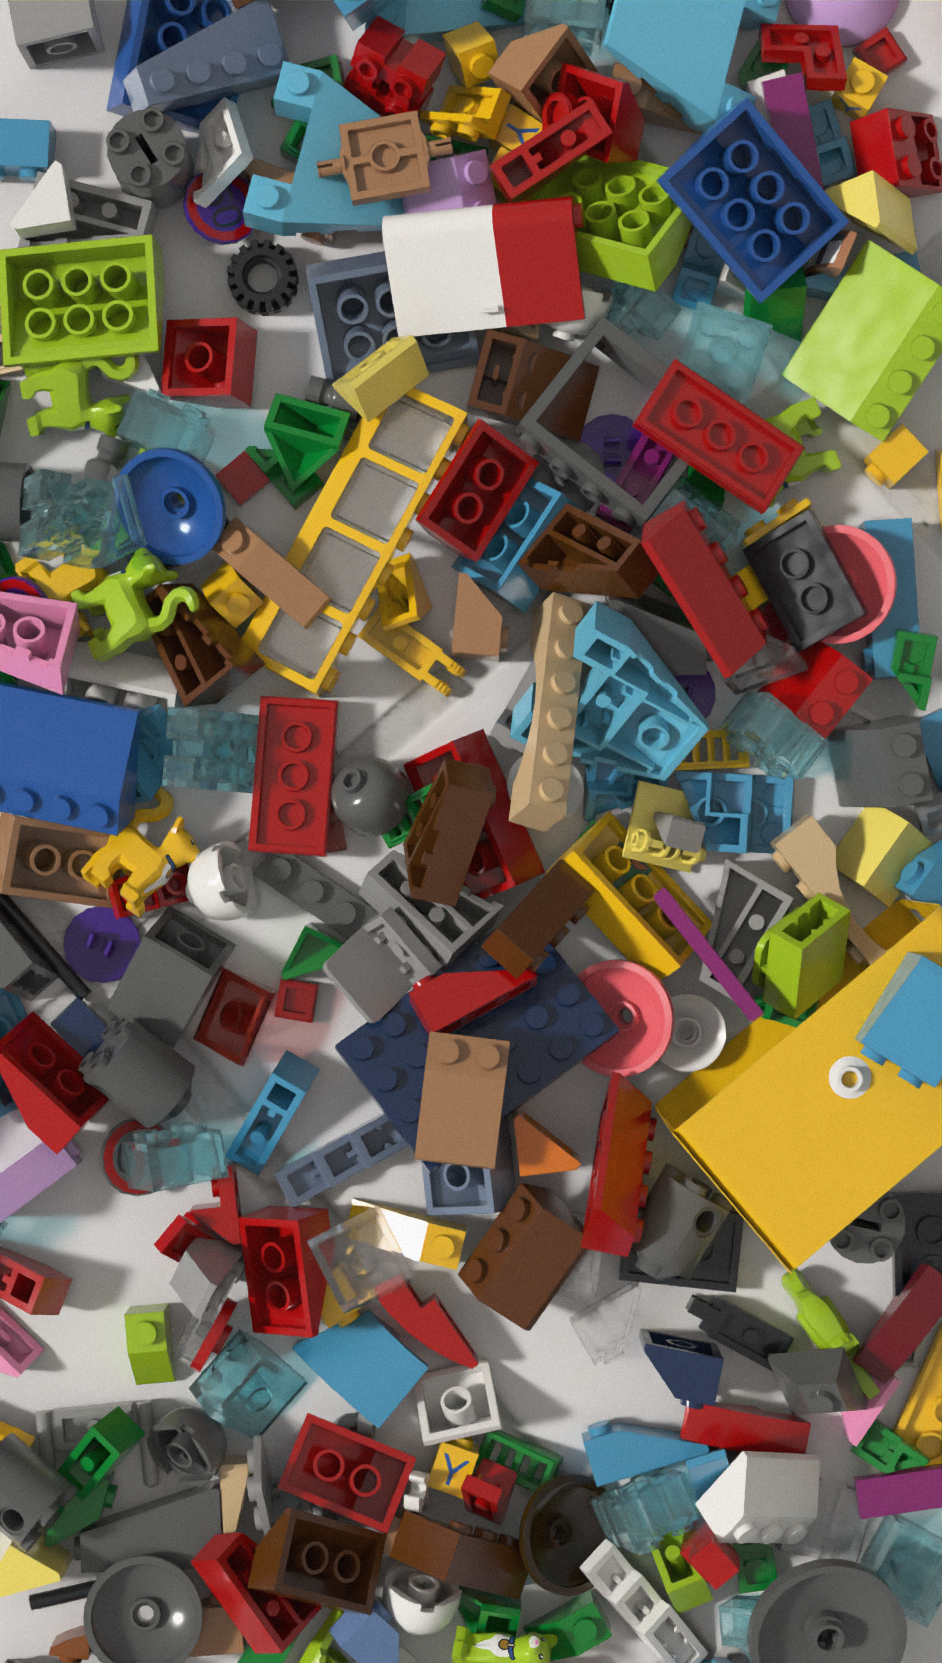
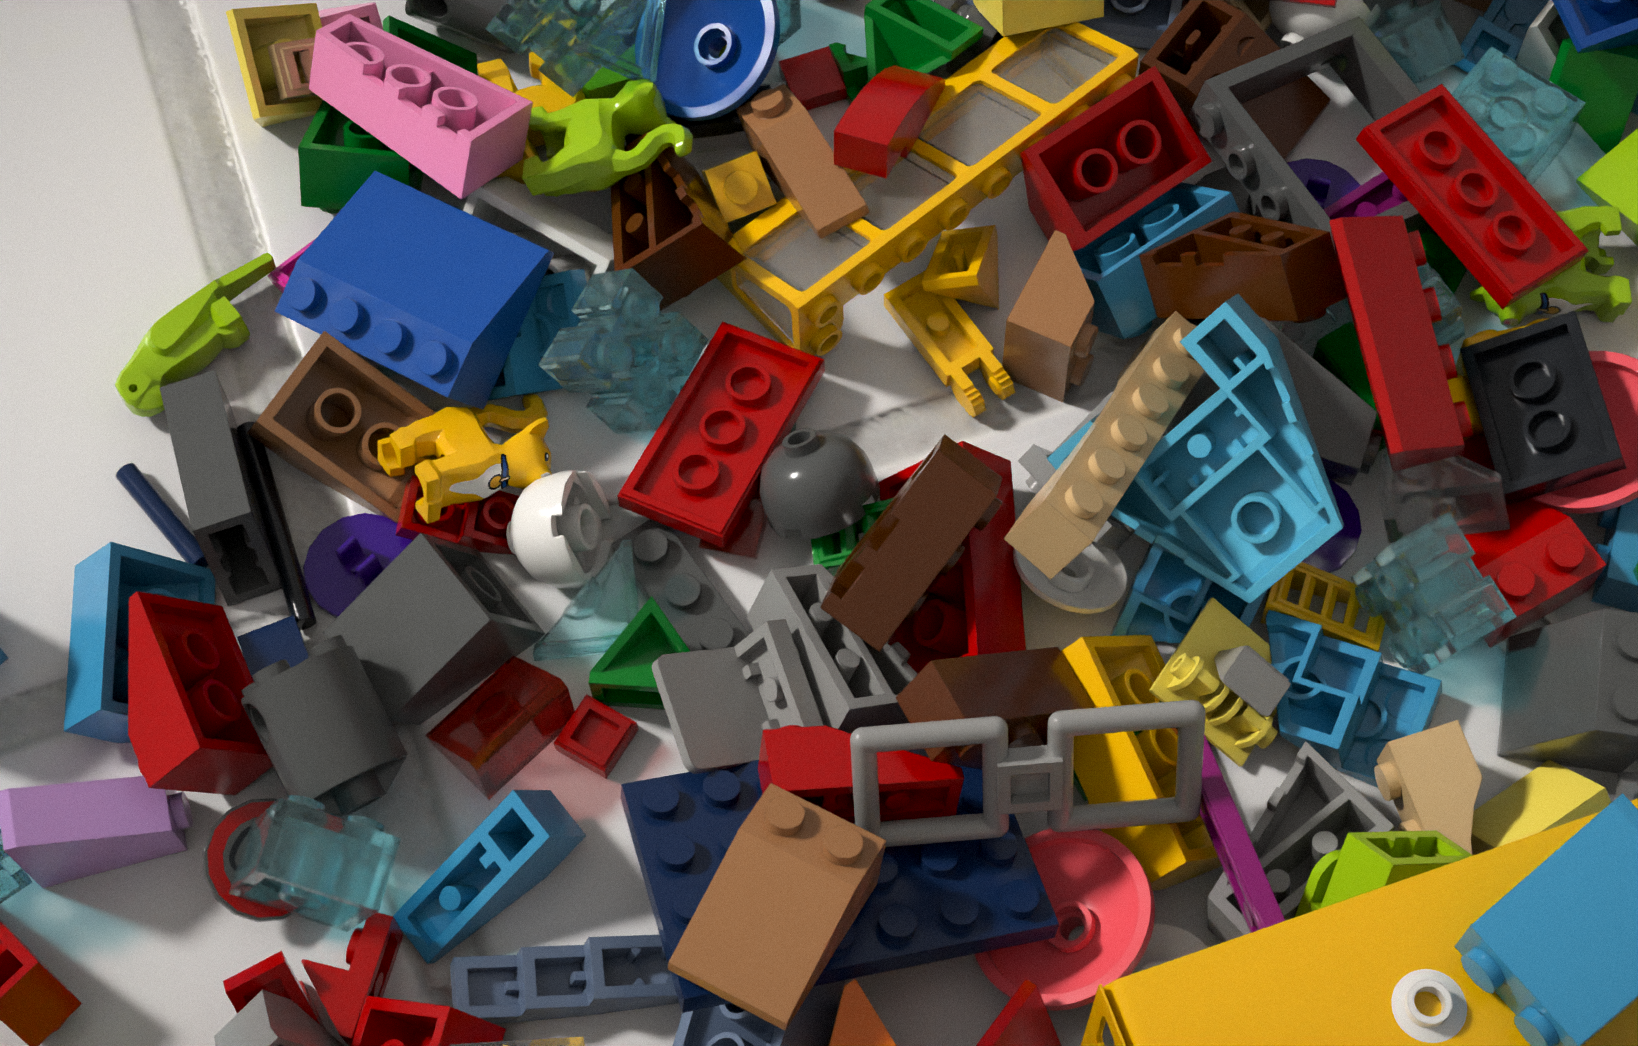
camera: 20 degrees right, 25 degrees down
(267, 929) = (596, 613): none -> clear light blue tile
(317, 520) = (885, 120): none -> red slope
(577, 968) = (1032, 775): none -> light grey bar

